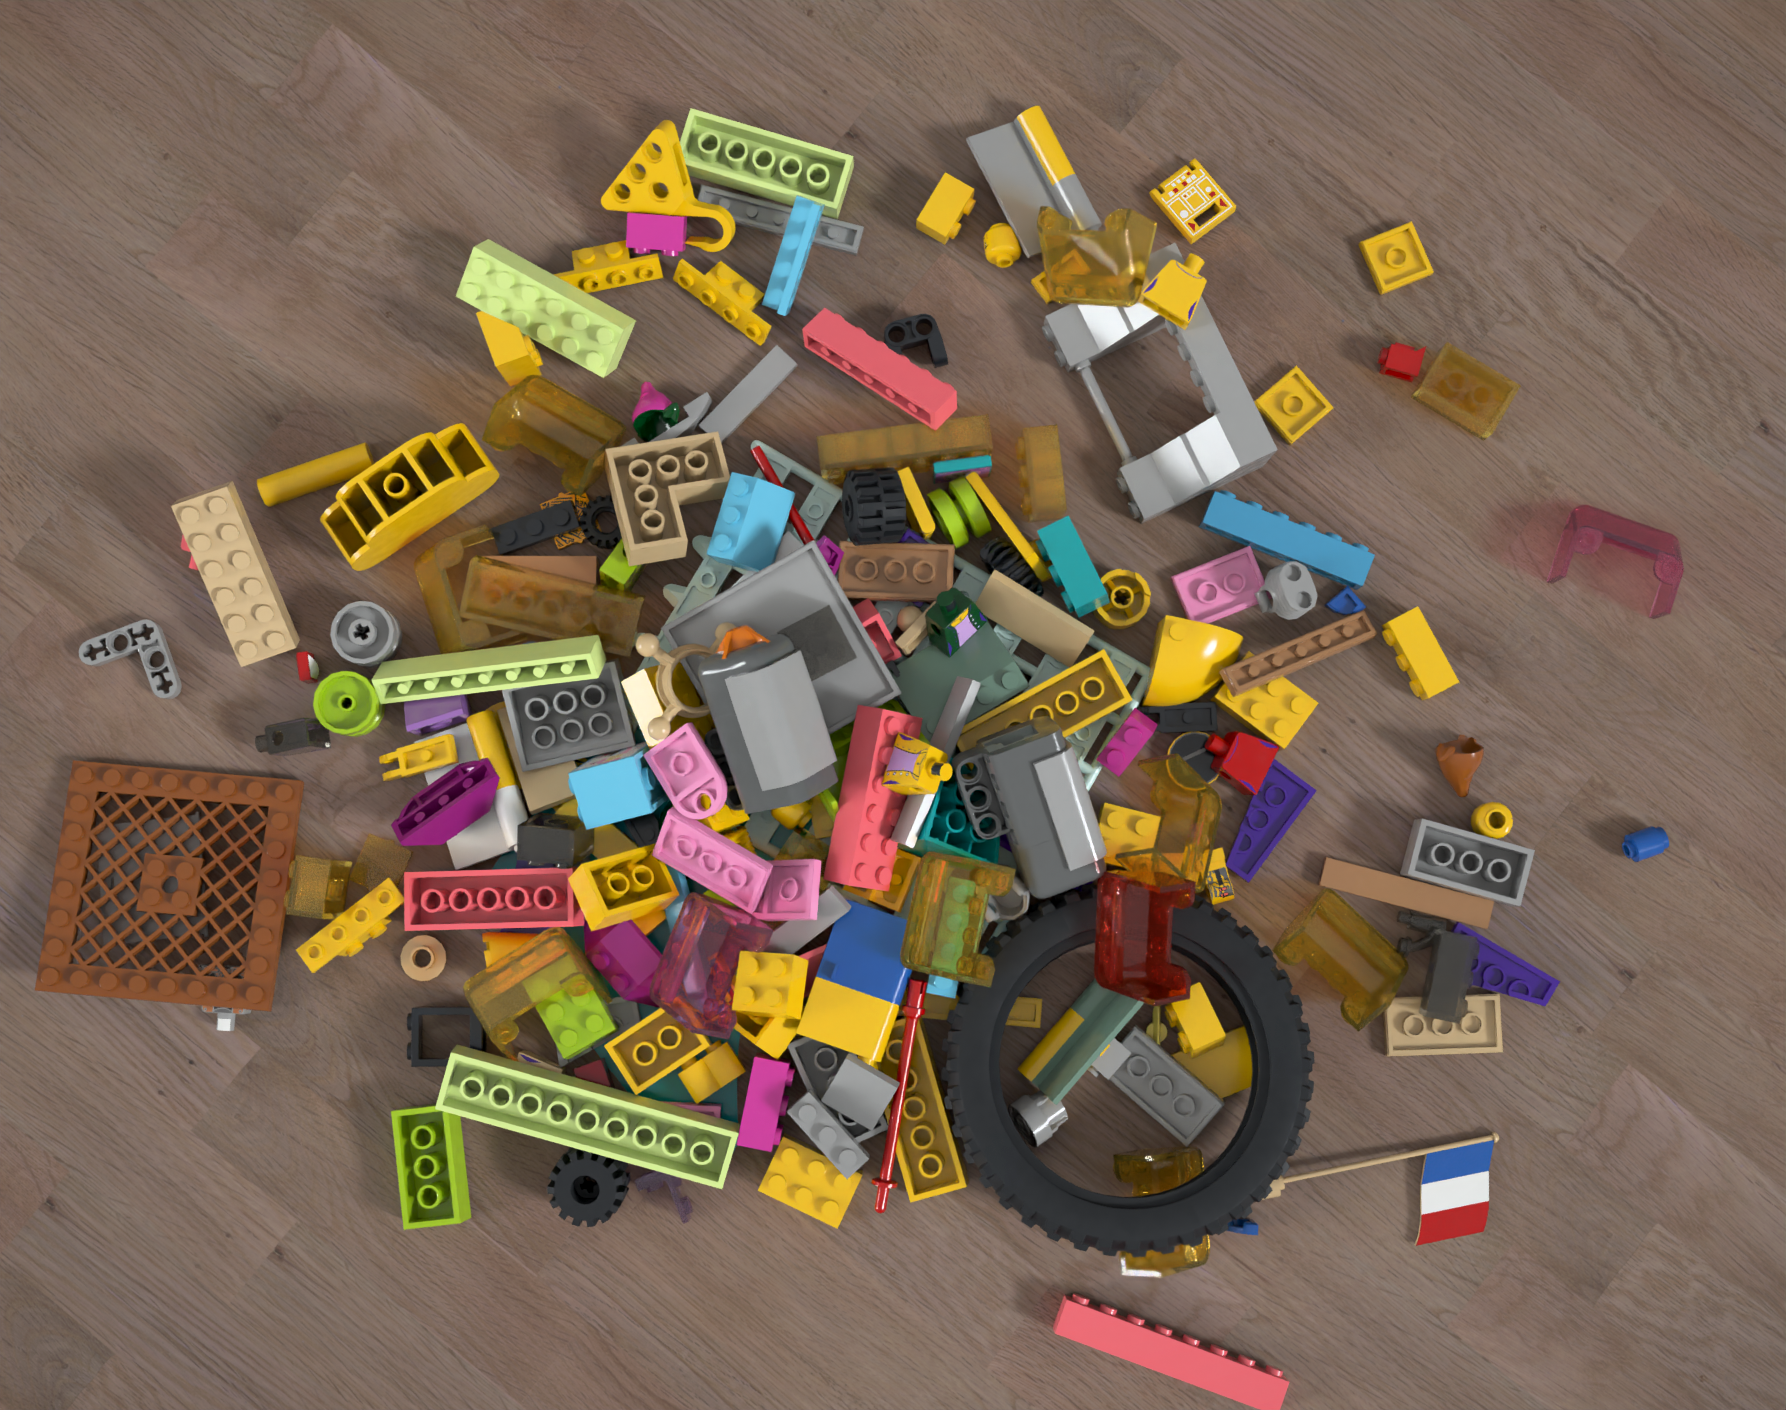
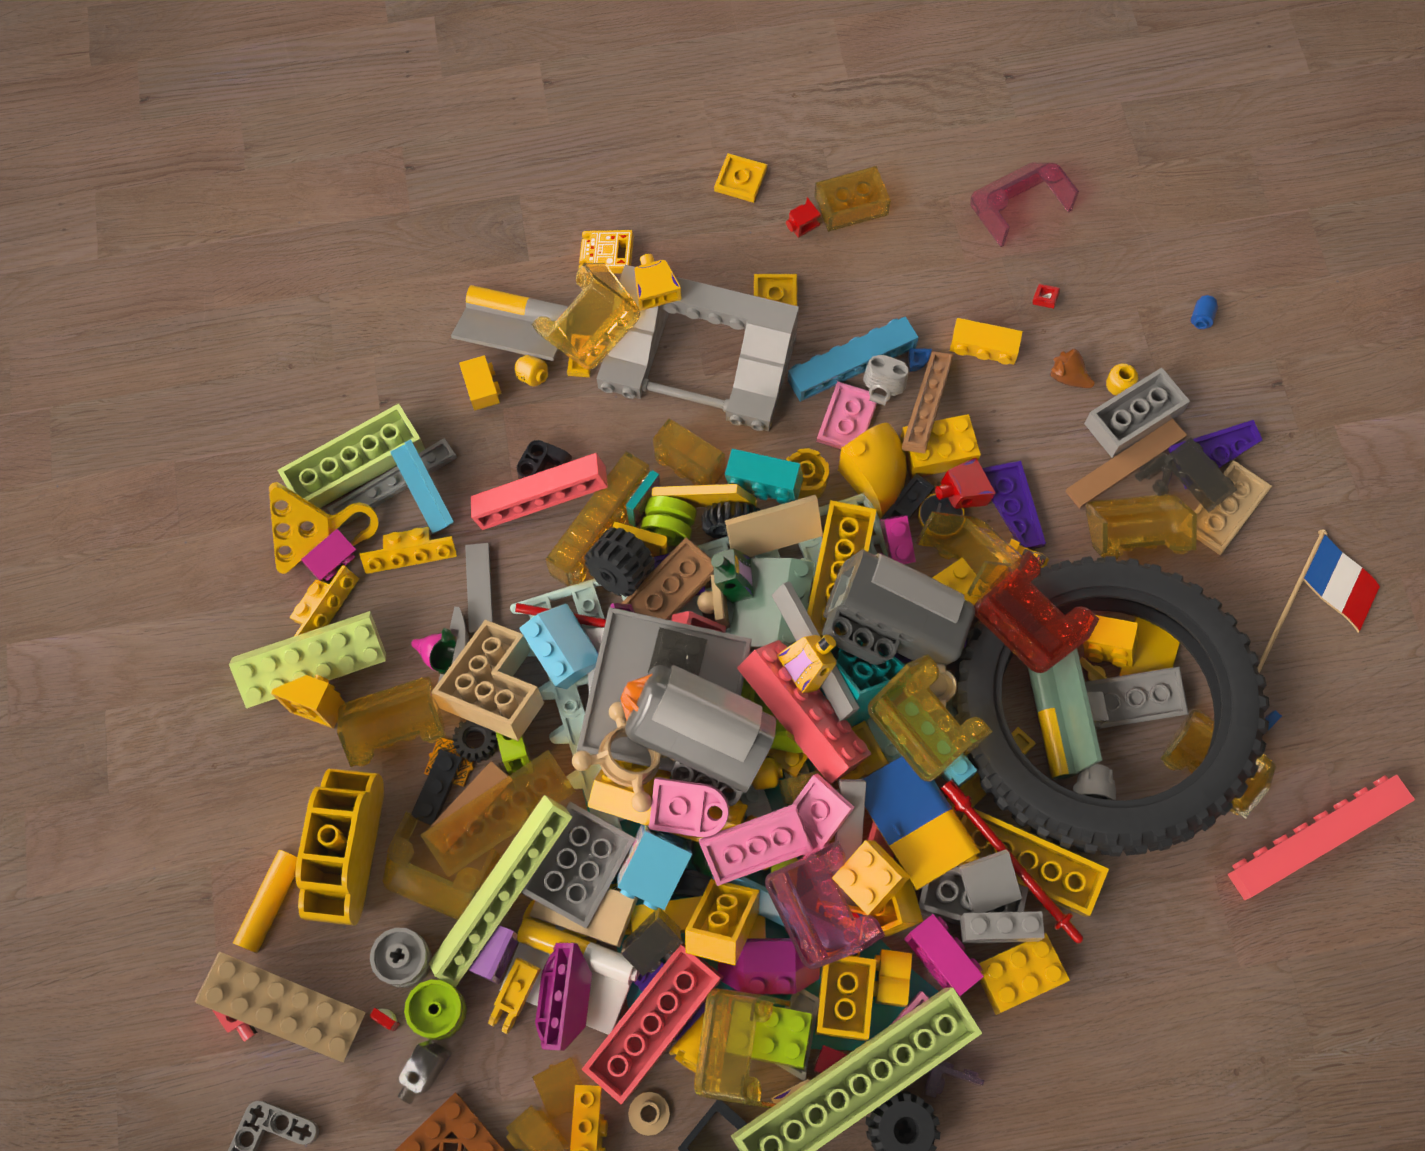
camera: 45 degrees left, 15 degrees down
(1526, 672) = (1046, 296): none -> red tile

